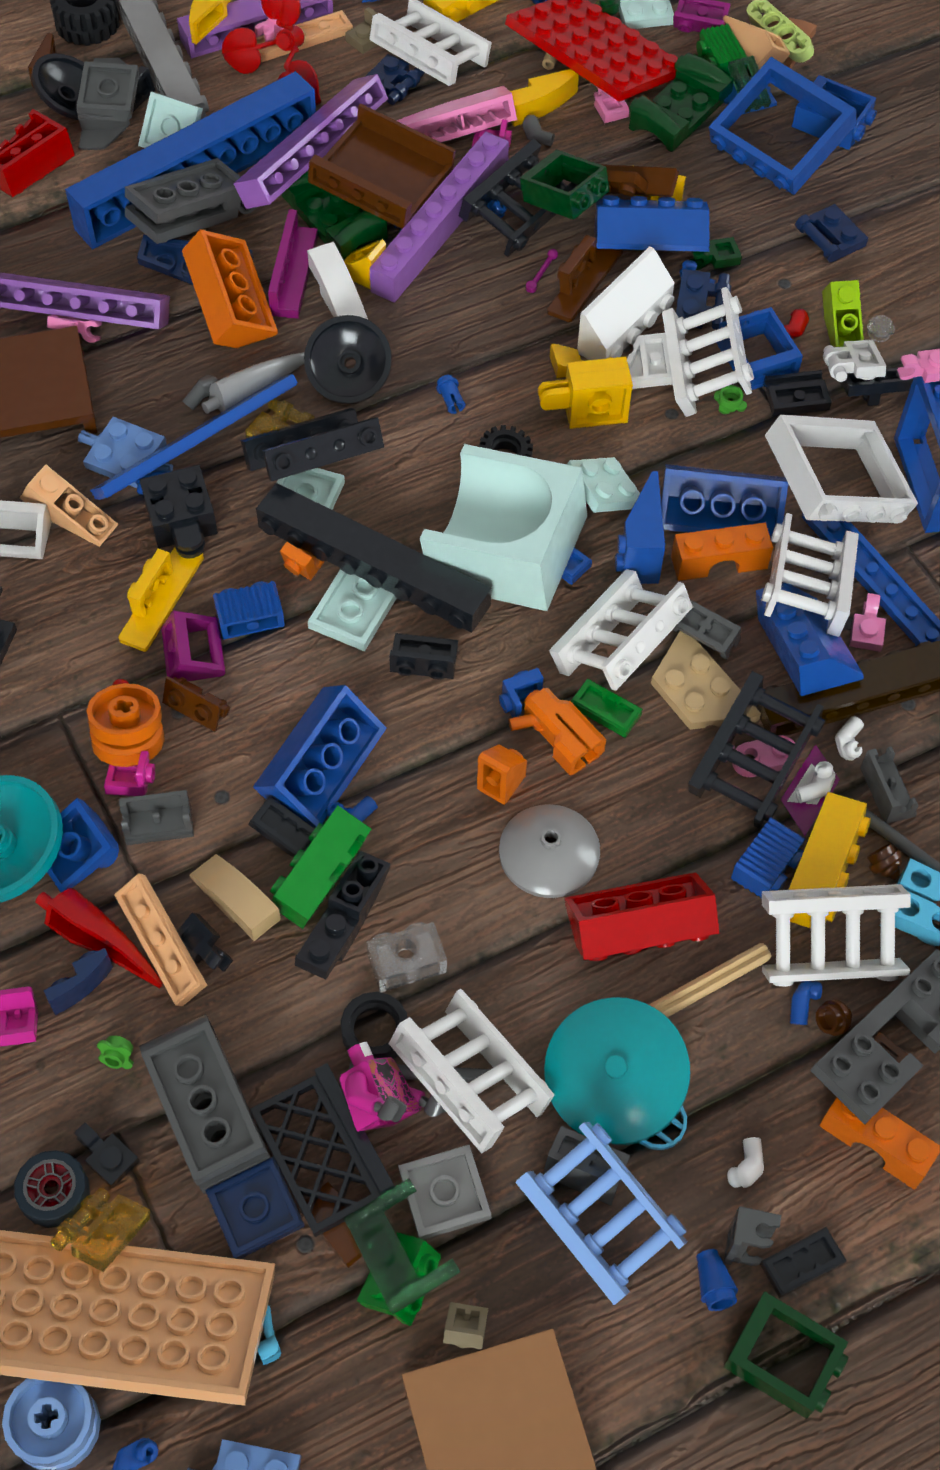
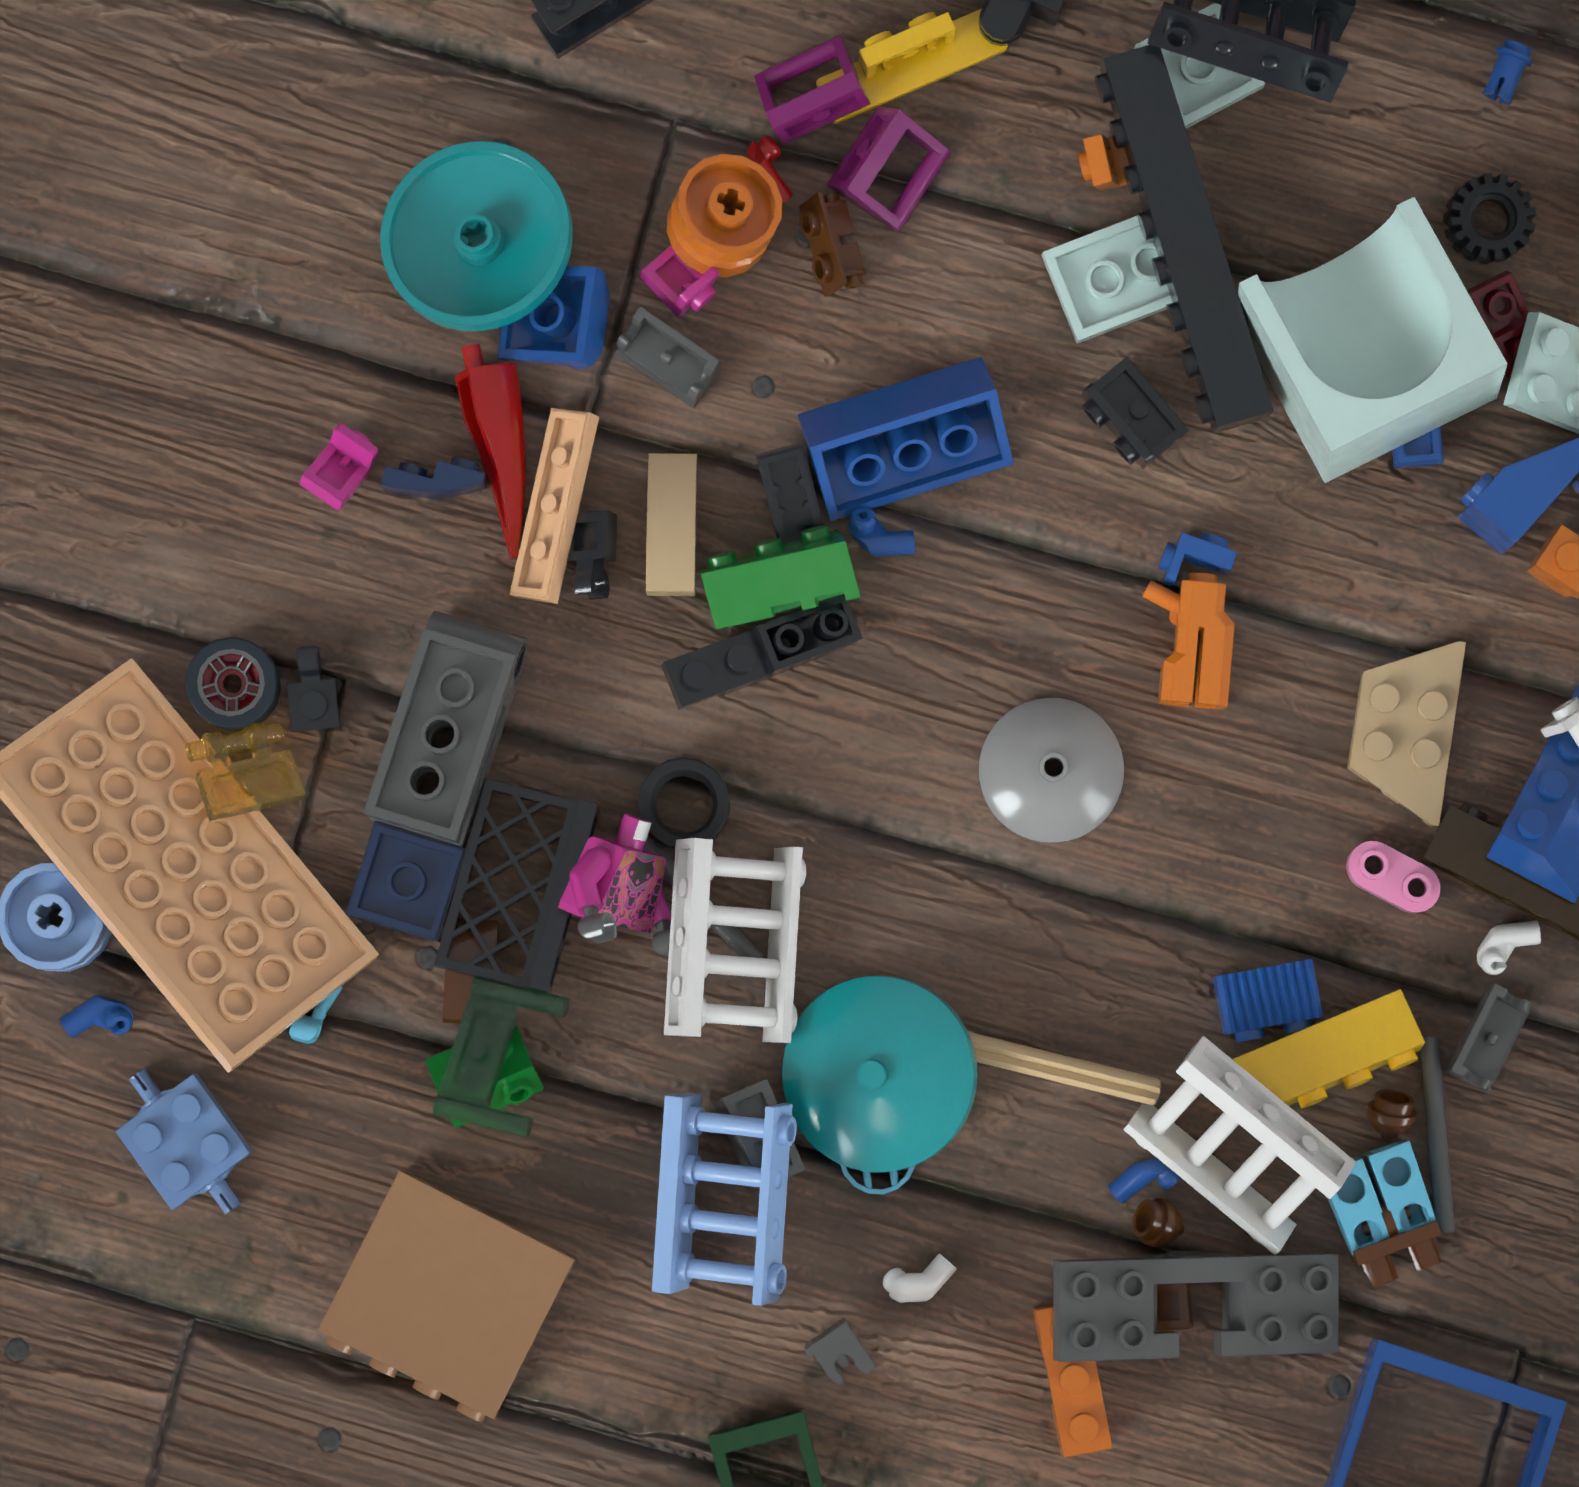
camera: 45 degrees right, 25 degrees up
(116, 1052) = (407, 595): bright green plate -> none
(127, 645) = (816, 106): none -> magenta tile
(248, 609) = (992, 173): blue brick -> none
(395, 971) = (804, 779): clear brick -> none
(447, 1192) = (601, 1034): light grey plate -> none
(465, 1325) = (497, 1181): dark tan bracket -> none
(500, 772) = (1081, 638): orange slope -> none
(605, 614) = (1371, 549): white fence -> none
(606, 708) = (1274, 662): green plate -> none
(642, 916) = (1070, 934): red slope -> none
(710, 629) = (1480, 670): dark grey hinge -> none
(715, 1282) = (774, 1355): blue cone -> none
(738, 722) = (1388, 824): black fence -> none
(803, 1262) = (875, 1418): black plate -> none
(805, 813) = (1404, 959): magenta sticker -> none
(820, 784) = (1415, 967): white arm -> none

